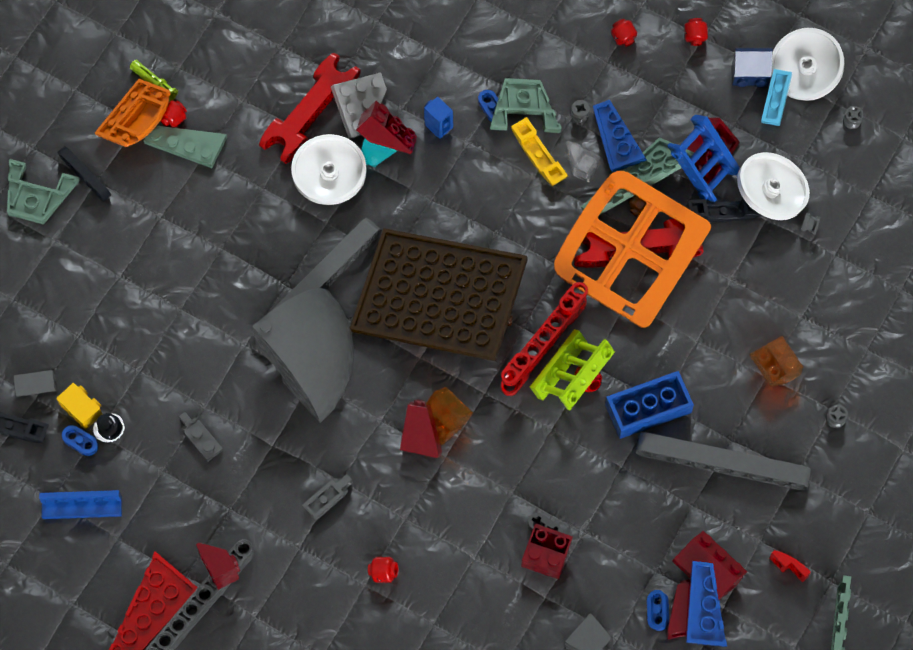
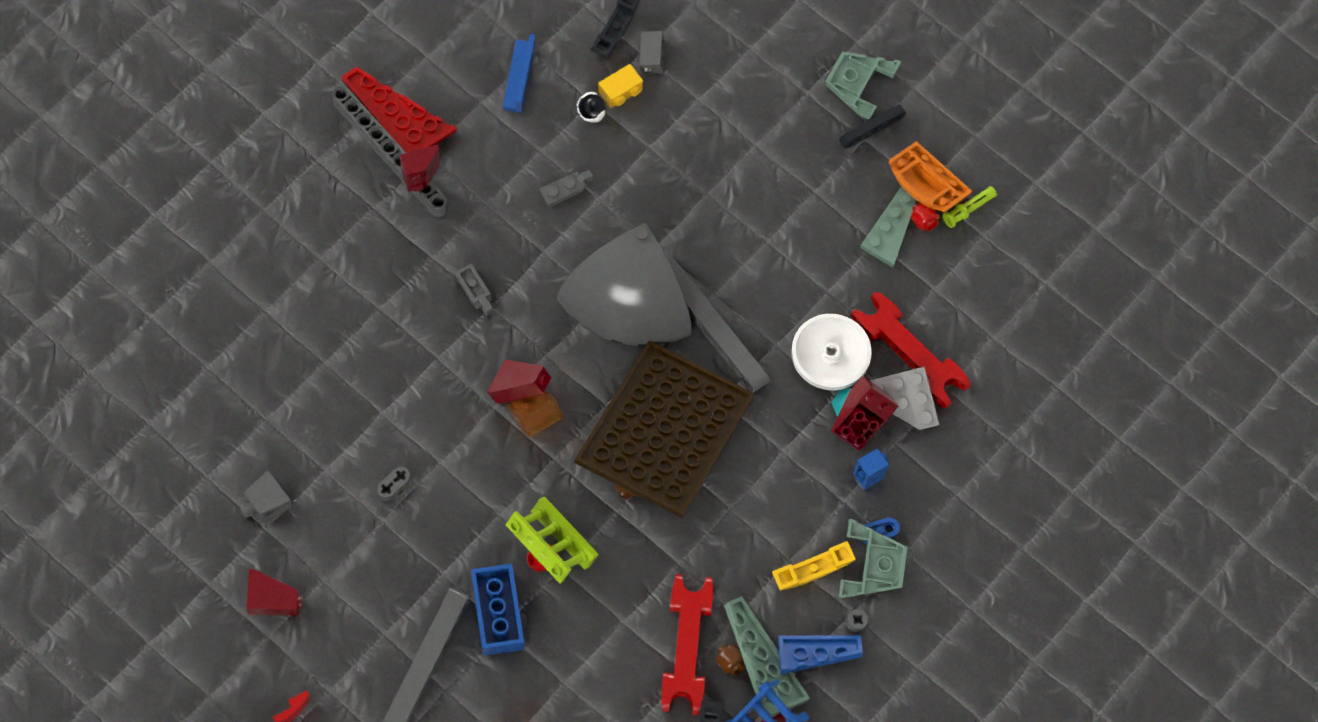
camera: 95 degrees right, 0 degrees up
(81, 440) = (584, 83): blue plate -> none
(383, 569) = (387, 323): red head -> none
(523, 363) = (618, 547): red piece -> none
(546, 551) = (364, 475): dark red slope -> none
(581, 161) = (794, 608): clear slope -> none
(624, 32) = (946, 689): red head -> none
(629, 246) = (679, 629): orange window -> none
(655, 611) = (279, 569): blue plate -> none
(704, 612) = (258, 603): blue wing -> none
(705, 549) = (307, 625): dark red slope -> none

